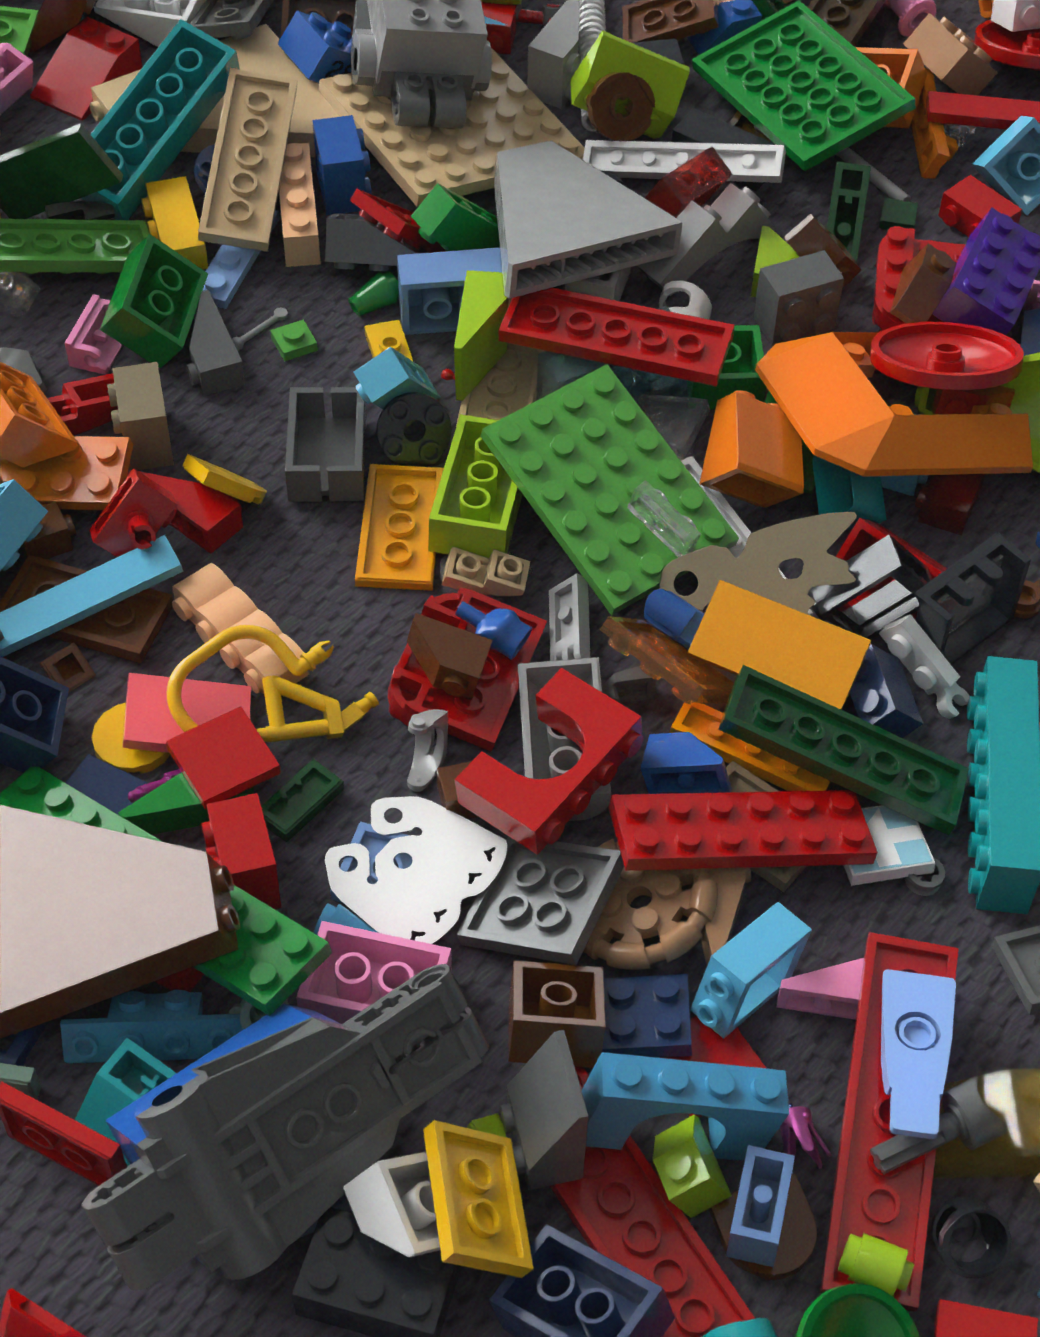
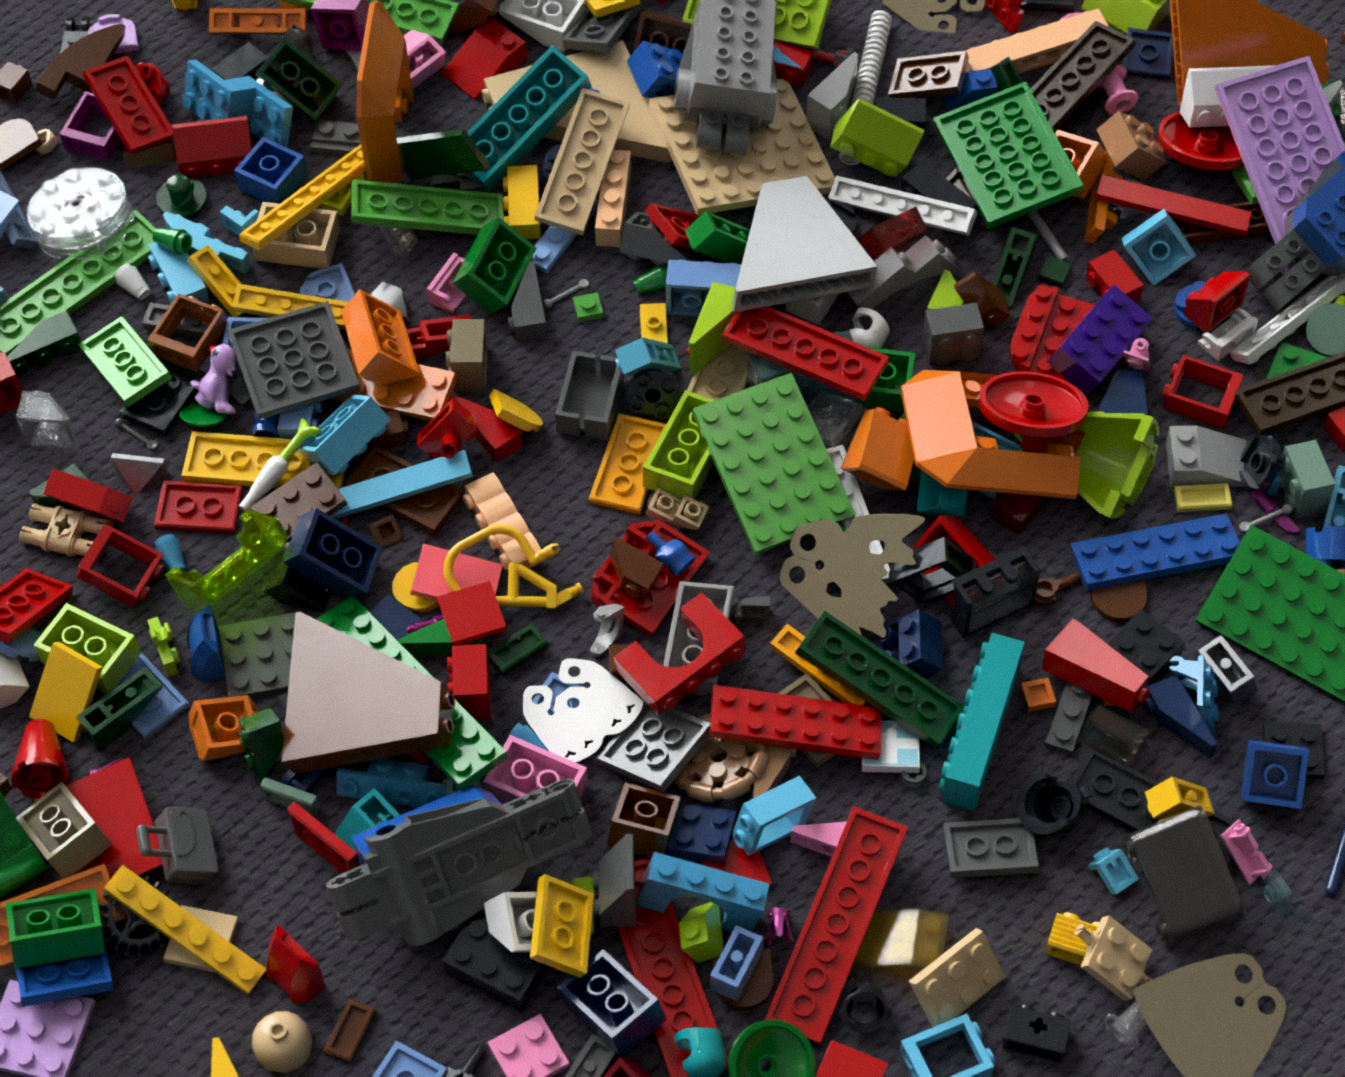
camera: 15 degrees right, 5 degrees up
(340, 162) = (650, 171): blue brick -> none
(569, 620) = (725, 554): light grey hinge -> none
(602, 104) = (851, 150): reddish brown plate -> none
(663, 519) = (796, 488): clear plate -> none
(665, 658) = (778, 596): clear orange plate -> none
(672, 616) = (798, 570): blue arm -> none
(682, 765) = (769, 672): blue slope -> none
(778, 643) = (855, 600): light orange tile -> none
(876, 1263) = (797, 1011): lime brick -> none
(915, 1048) = (860, 885): light blue piece -> none
(923, 285) = (1044, 340): reddish brown slope -> none
(925, 663) = (957, 629): white plate -> none
(963, 1118) = (876, 935): dark grey piece -> none

